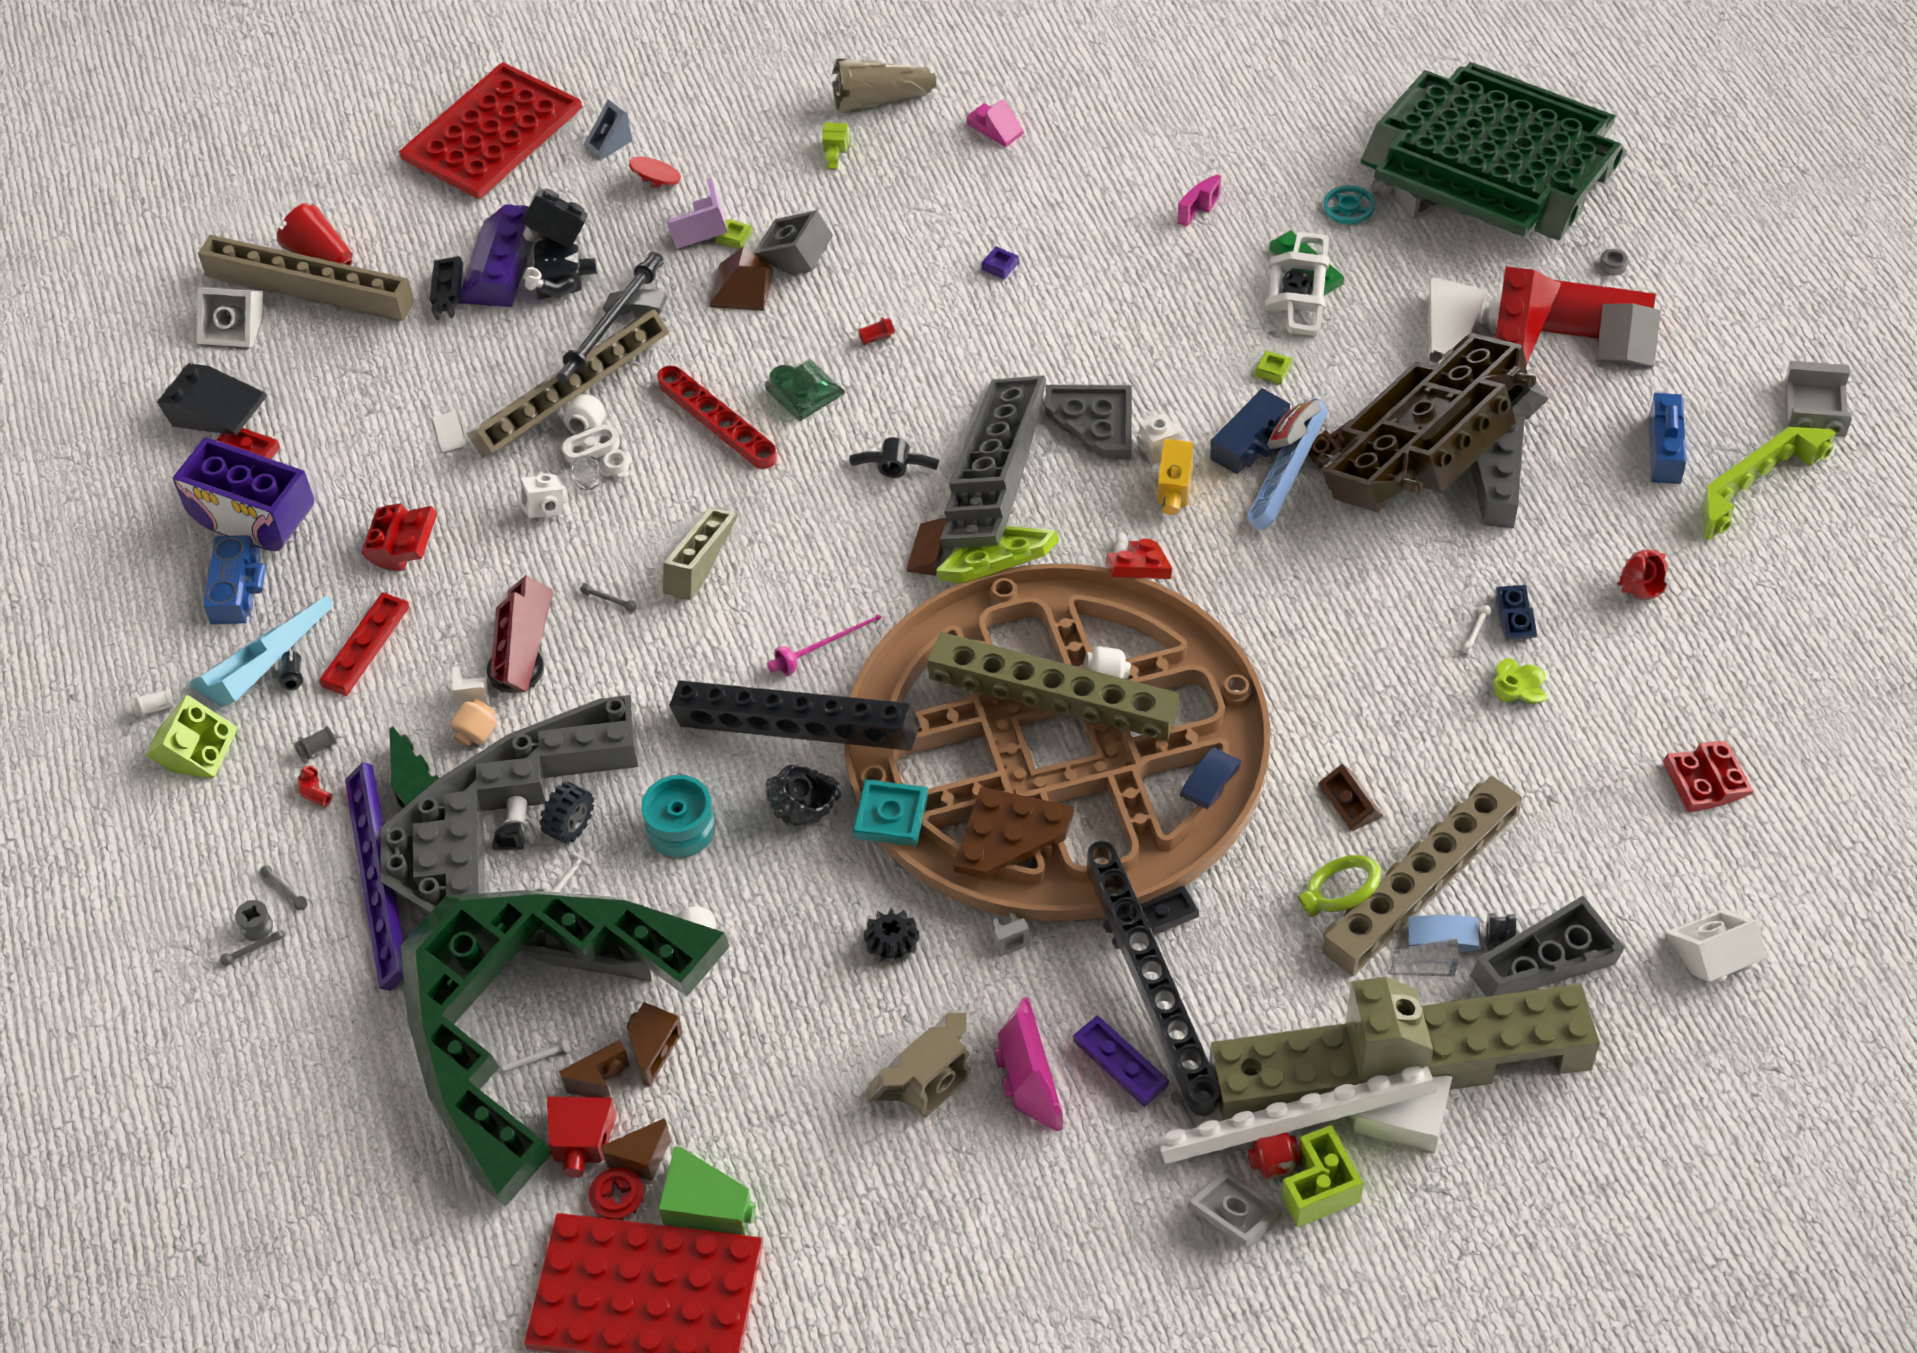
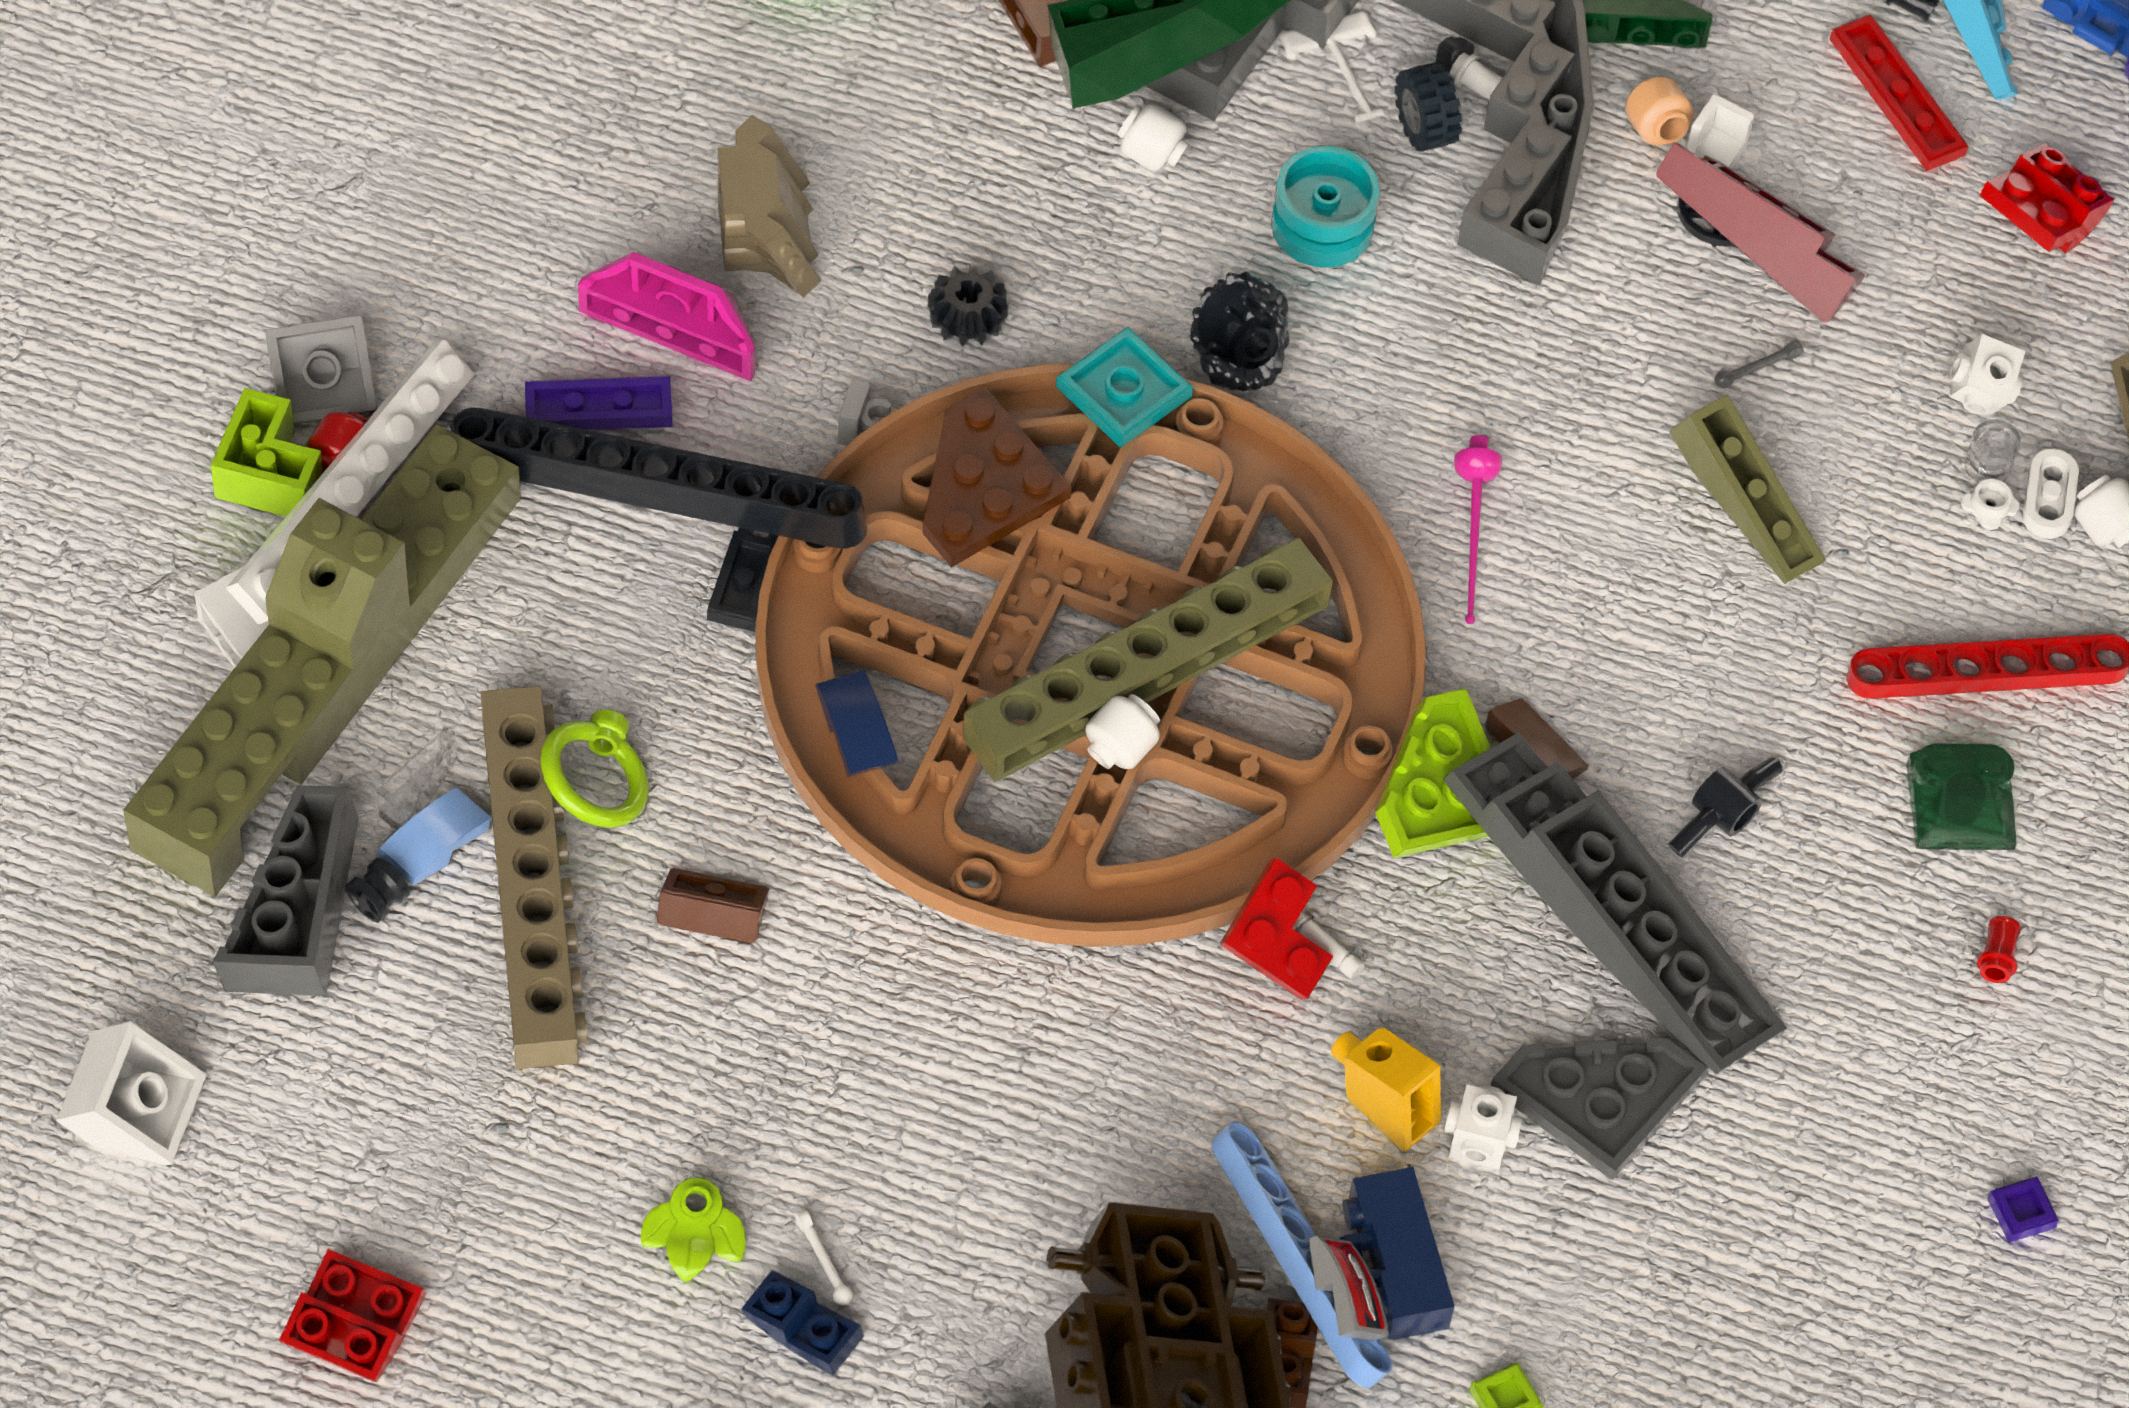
camera: 120 degrees right, 5 degrees up
(795, 715) = (1356, 383): black brick -> none

